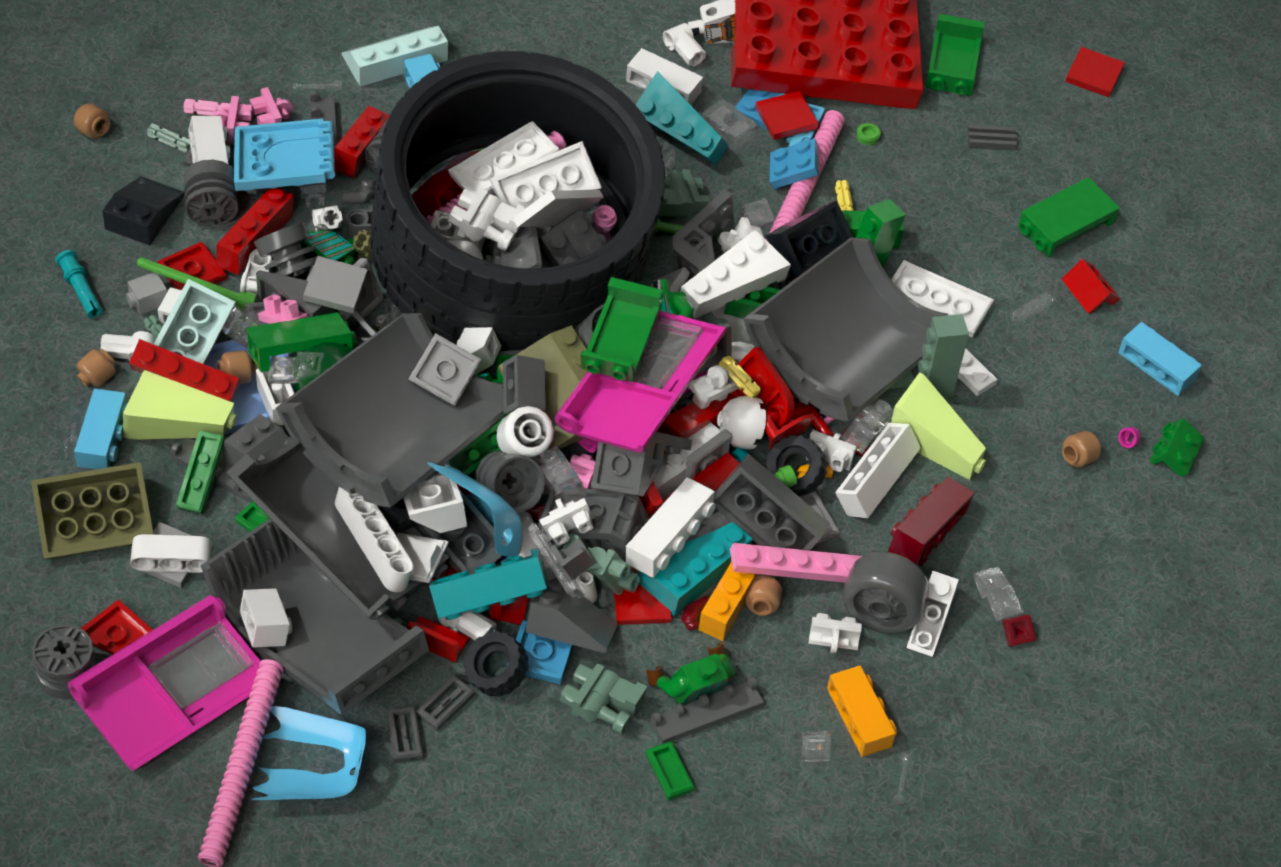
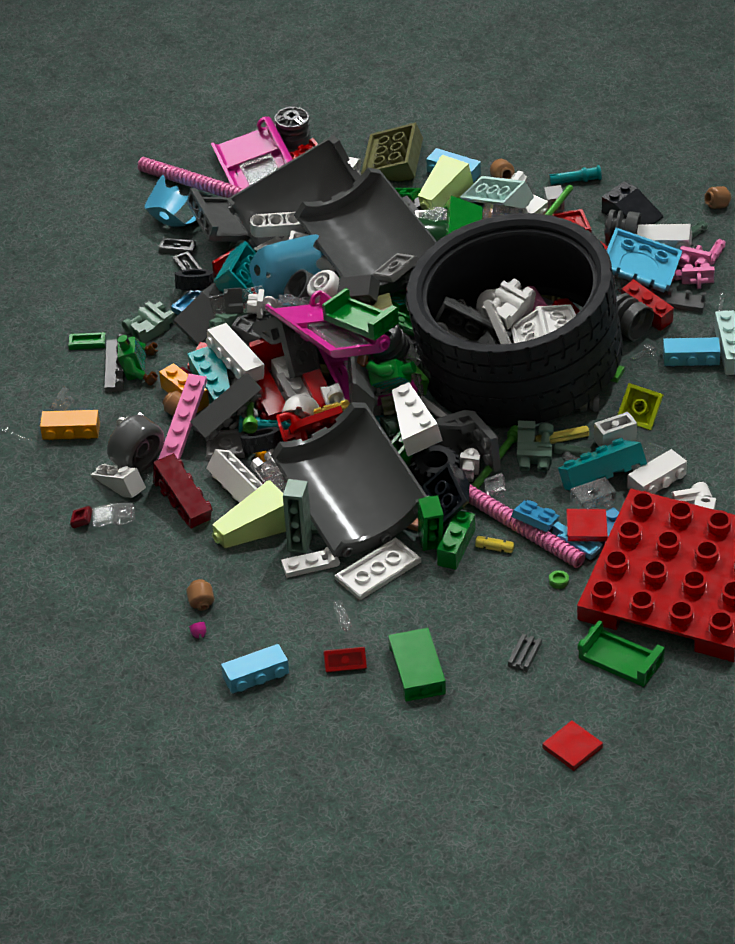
camera: 120 degrees right, 10 degrees down
(183, 370) = (468, 181): red brick -> none
(1177, 446) = (173, 652): green bracket -> none

